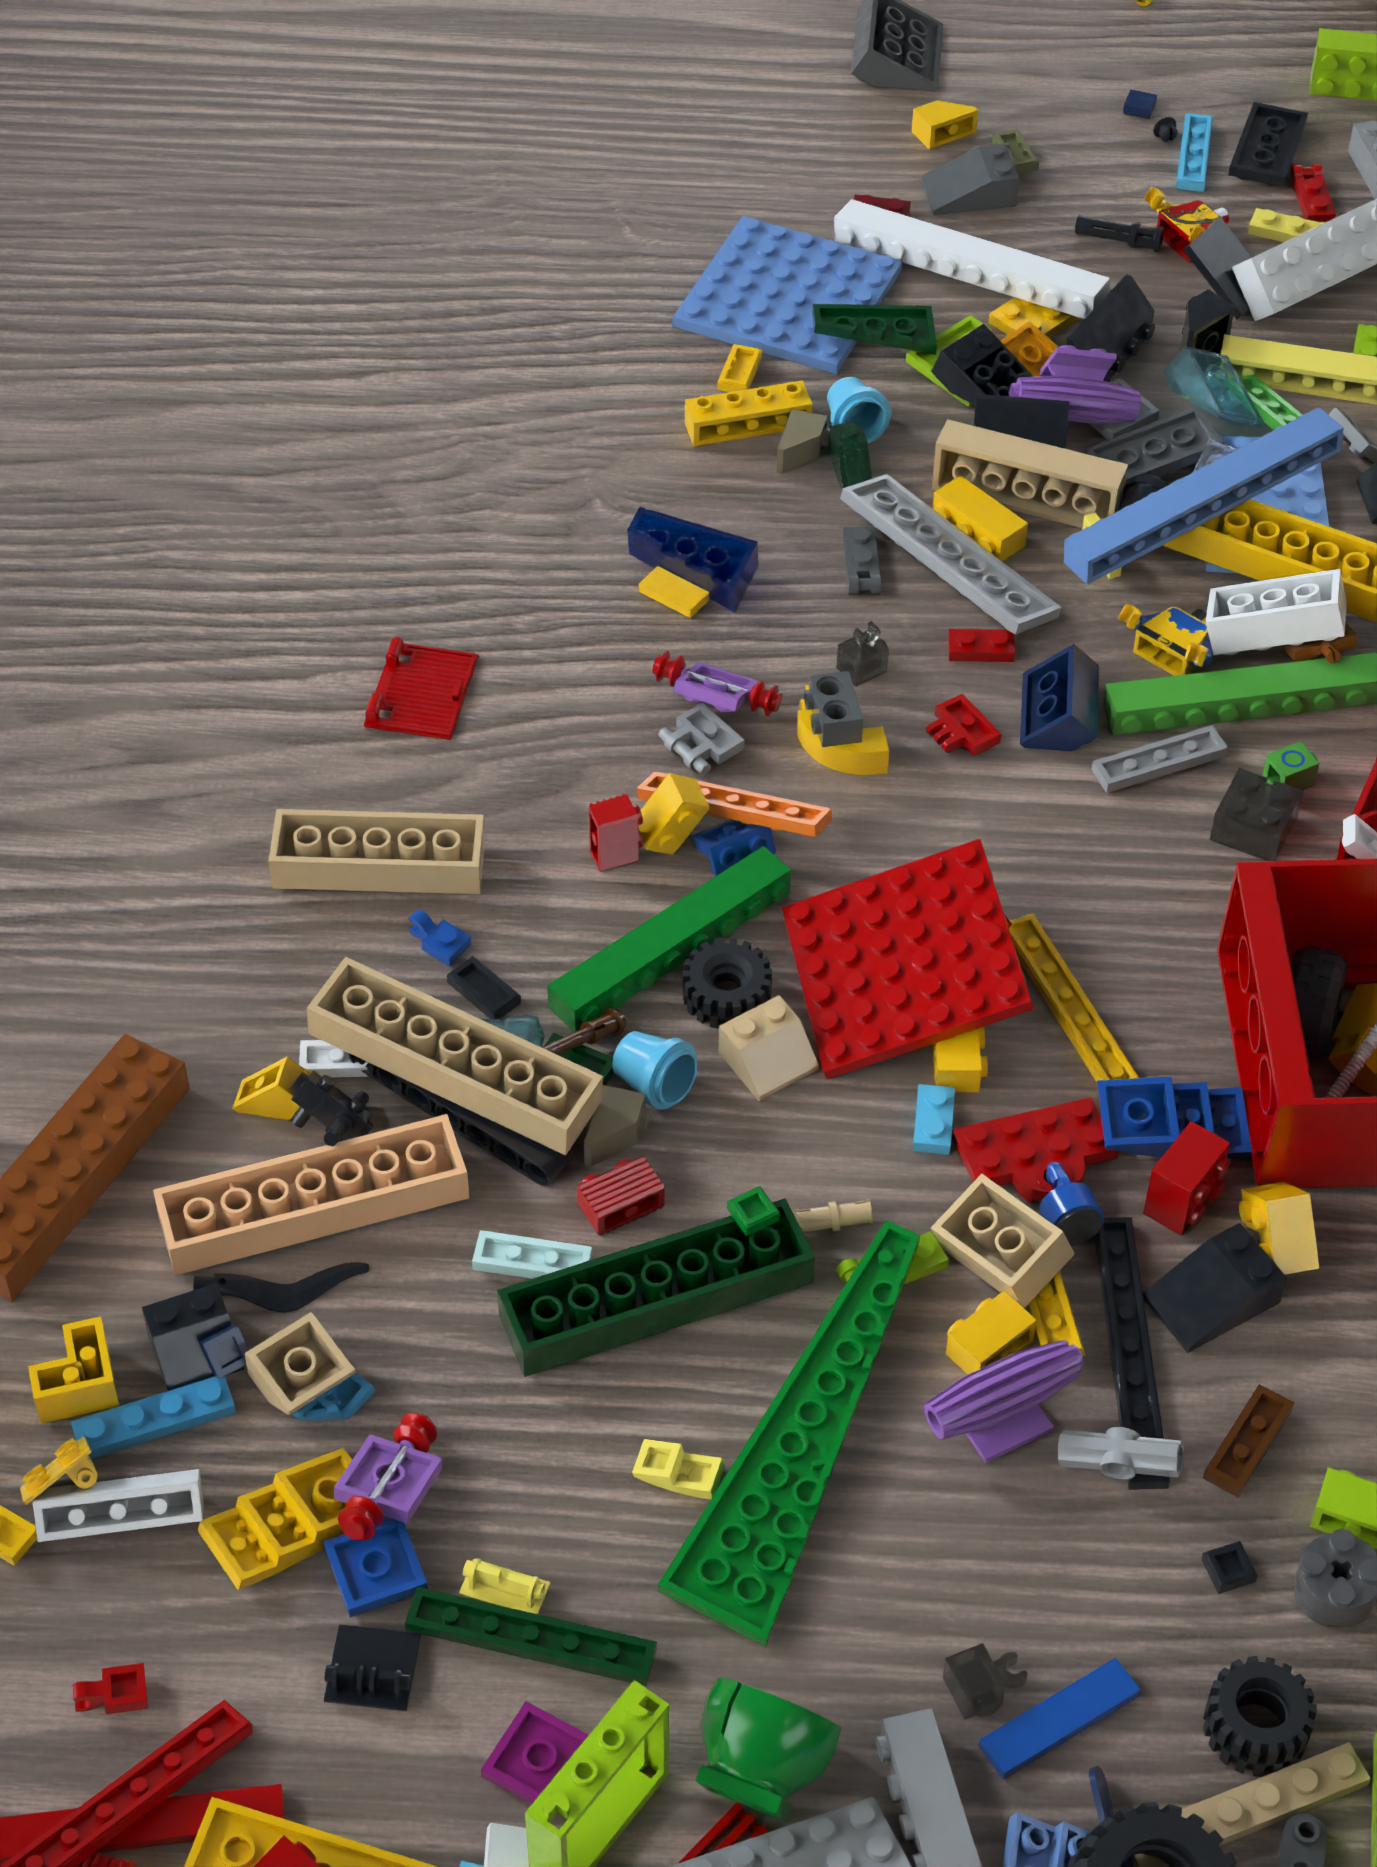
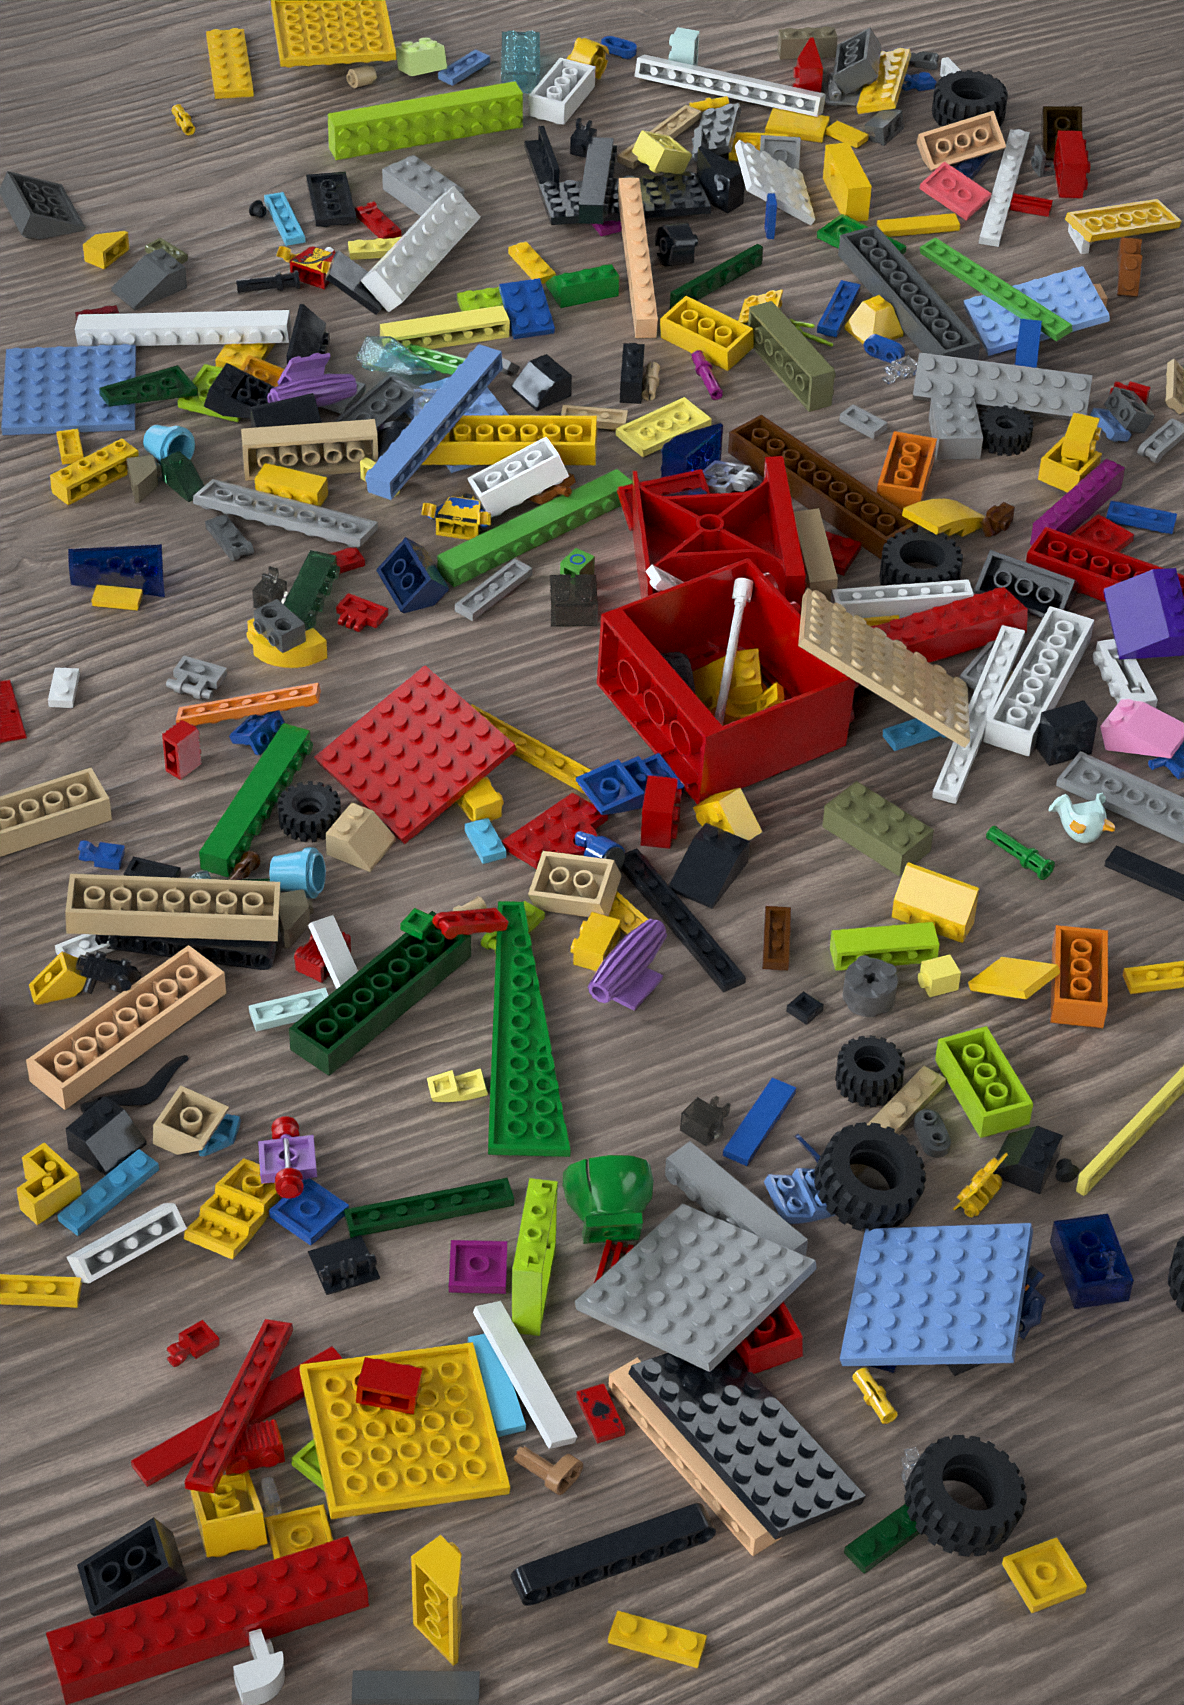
camera: 30 degrees left, 5 degrees down
(71, 1460) = (77, 1232): yellow hinge -> none
(225, 1351) = (135, 1132): dark blue plate -> none
(503, 1586) = (387, 1189): light yellow hinge -> none
(534, 689) = (63, 687): none -> white plate
(626, 1199) = (333, 949): none -> white tile
(672, 813) = (214, 722): yellow brick -> none
(716, 686) = (187, 642): plate -> none
(821, 1238) = (470, 922): none -> red plate
(911, 673) = (312, 586): none -> clear green brick
(1120, 1453) = (711, 971): light grey piece -> none
(1139, 104) = (229, 198): dark blue tile -> none
(1206, 322) = (364, 320): black slope -> none

